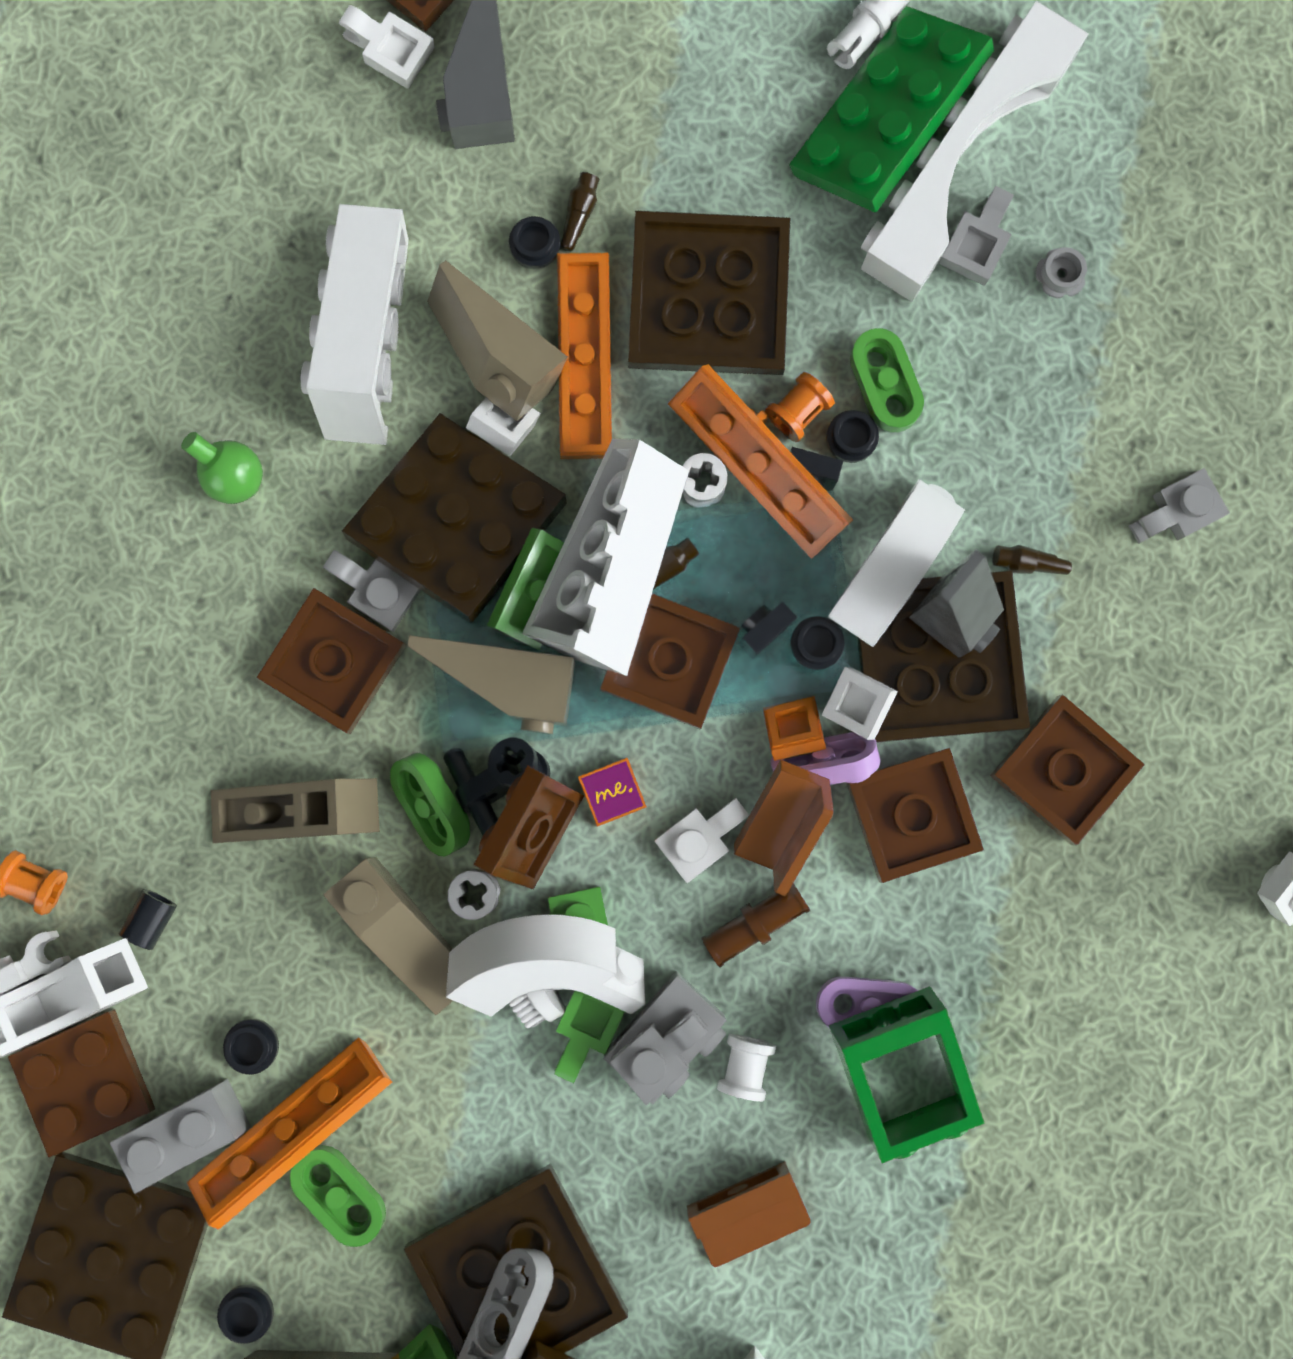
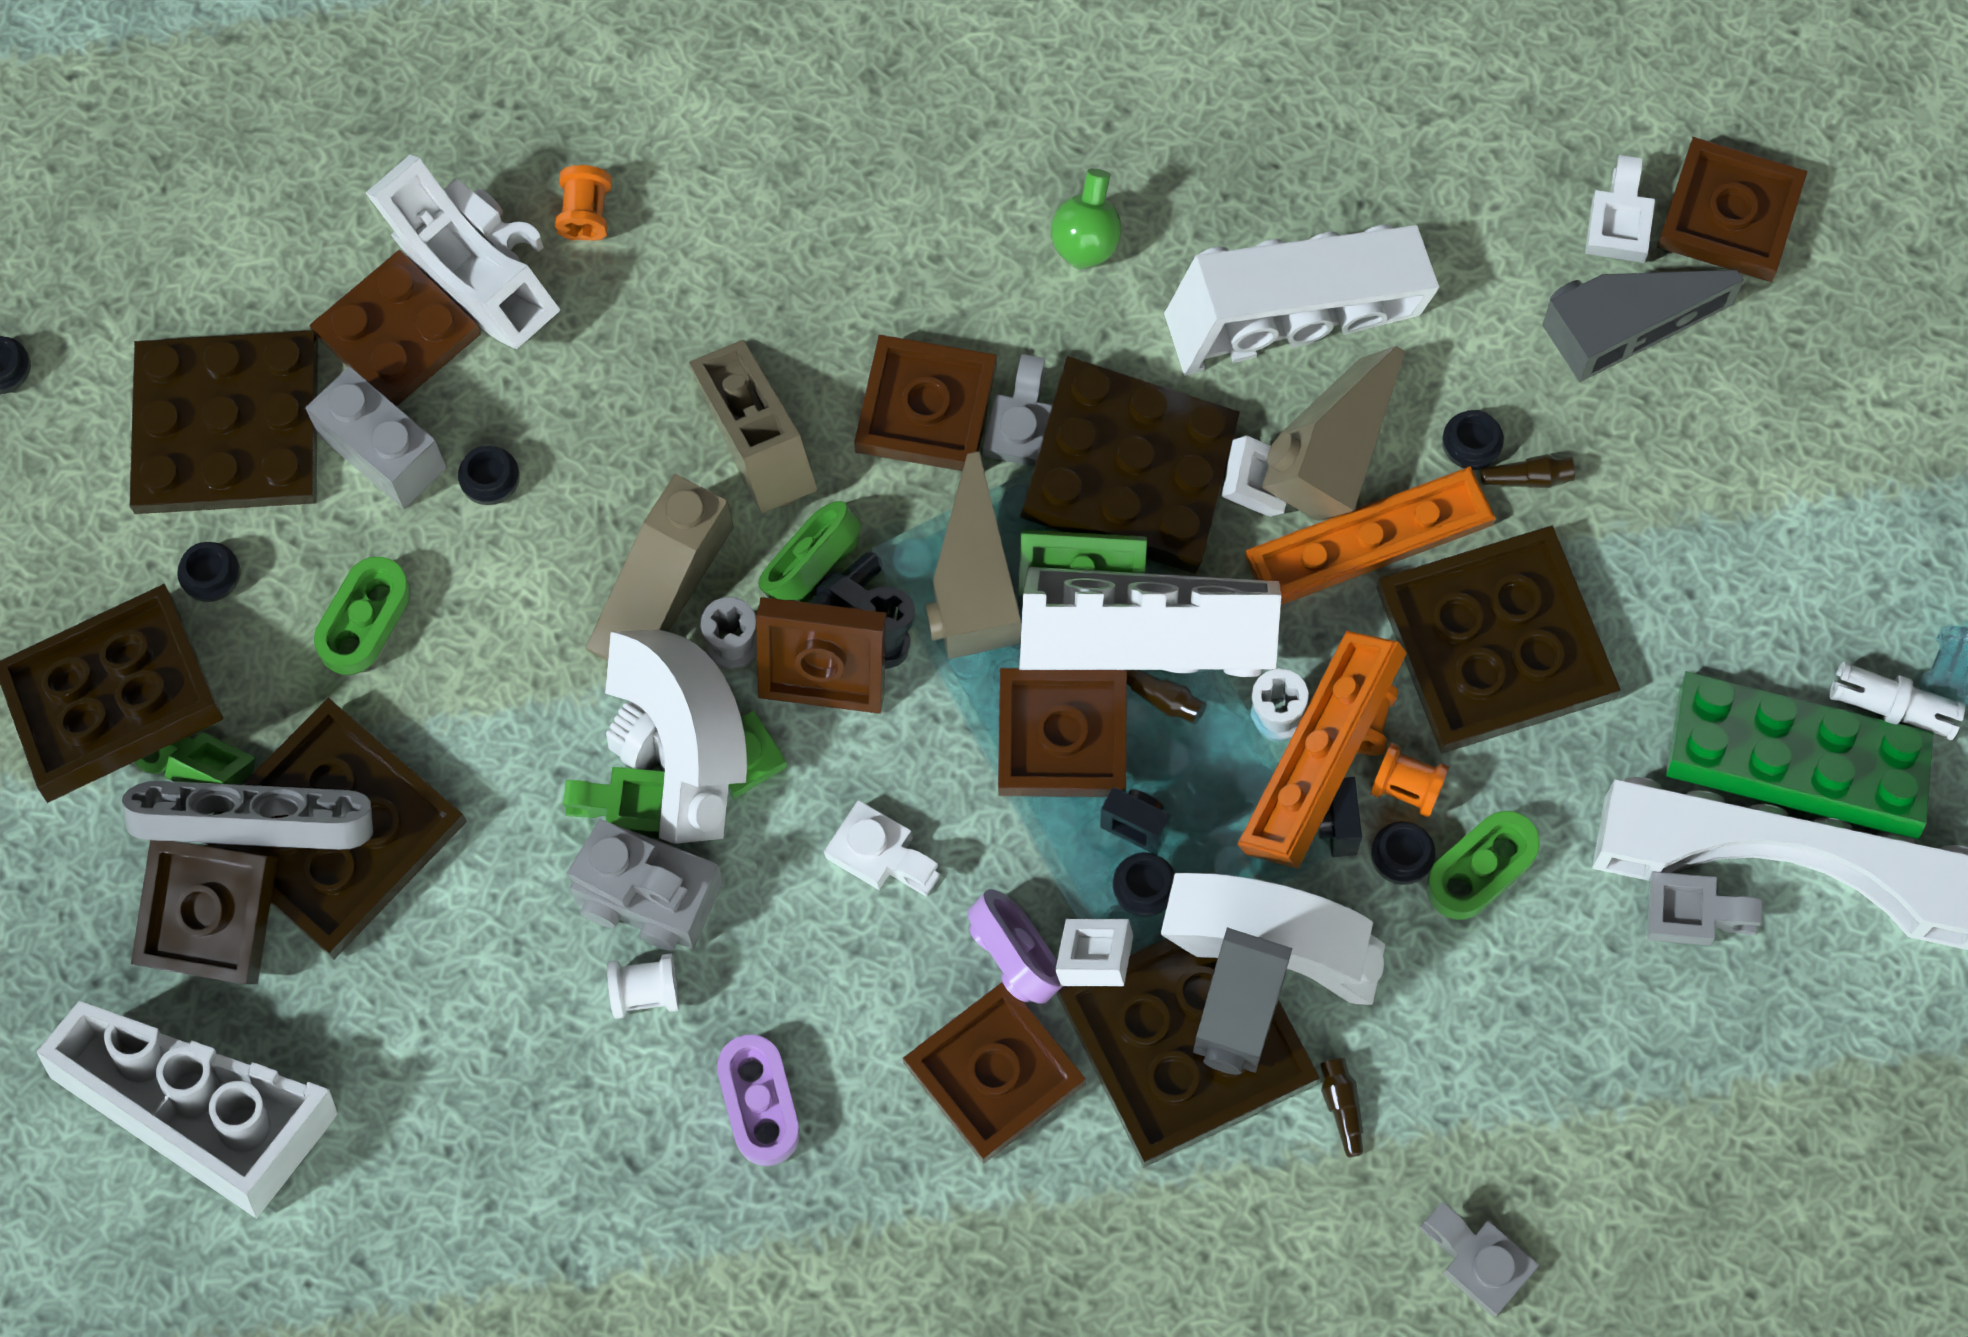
camera: 75 degrees right, 15 degrees down
(147, 919) = (586, 327): black hinge -> none
(288, 1133) = (413, 542): orange tile -> none
(612, 792) = (895, 740): magenta tile -> none
(748, 1215) = (480, 1051): dark orange panel -> none
(754, 925) = (806, 941): reddish brown pin -> none
(786, 823) = (931, 918): dark orange panel -> none
(794, 728) = (1039, 902): orange tile -> none
(893, 1028) = (748, 1115): green window -> none
(1067, 770) = (1113, 1227): reddish brown plate -> none
(1071, 263) = (1712, 1008): light grey plate -> none

